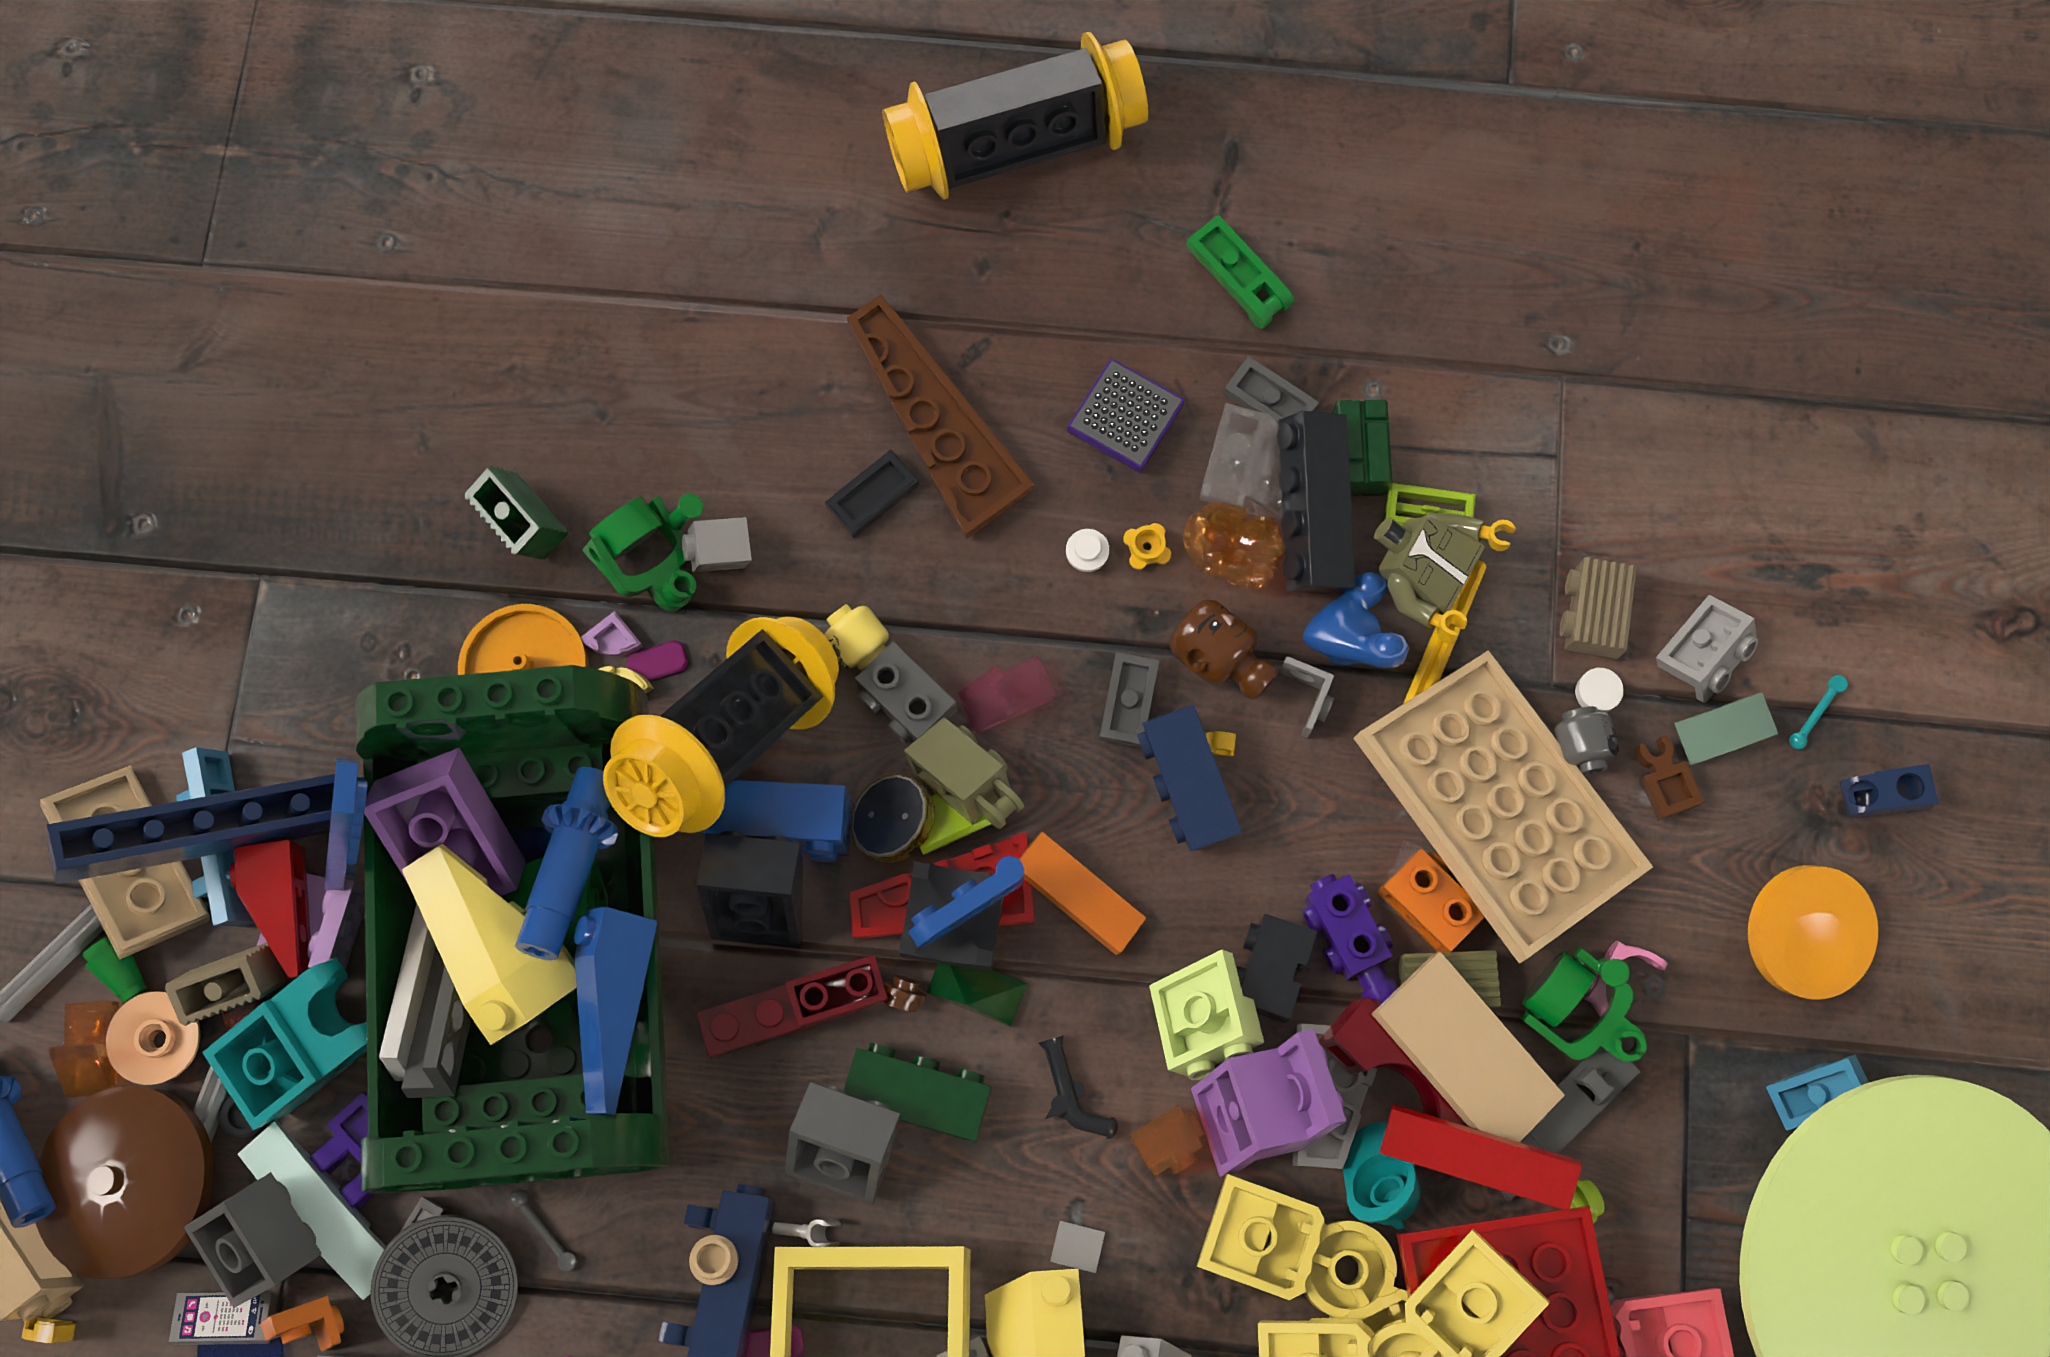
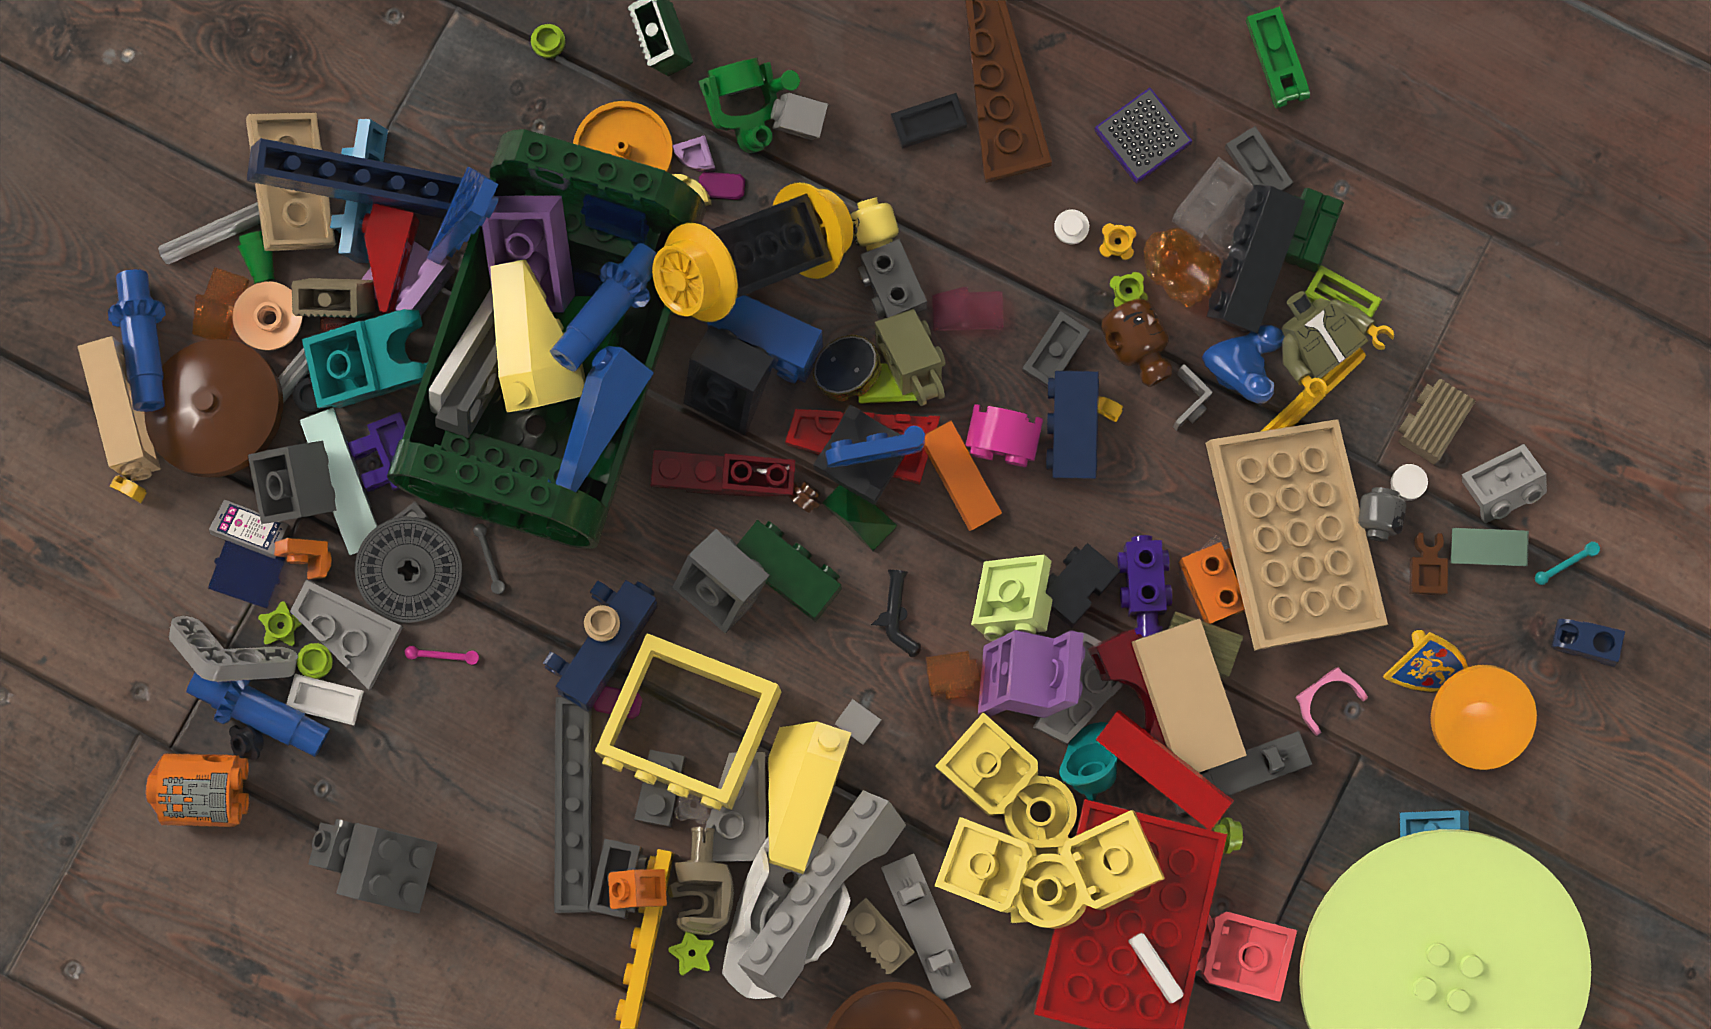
camera: 25 degrees right, 5 degrees up
(385, 573) = (548, 41): none -> lime plate
(536, 750) = (615, 219): none -> clear blue piece
(812, 1232) = (676, 635): white hand -> none
(1110, 823) = (1003, 434): none -> dark pink brick
(1186, 585) = (1132, 281): none -> lime plate
(1562, 988) = (1280, 681): green piece -> none
(1723, 894) = (1427, 663): none -> shield

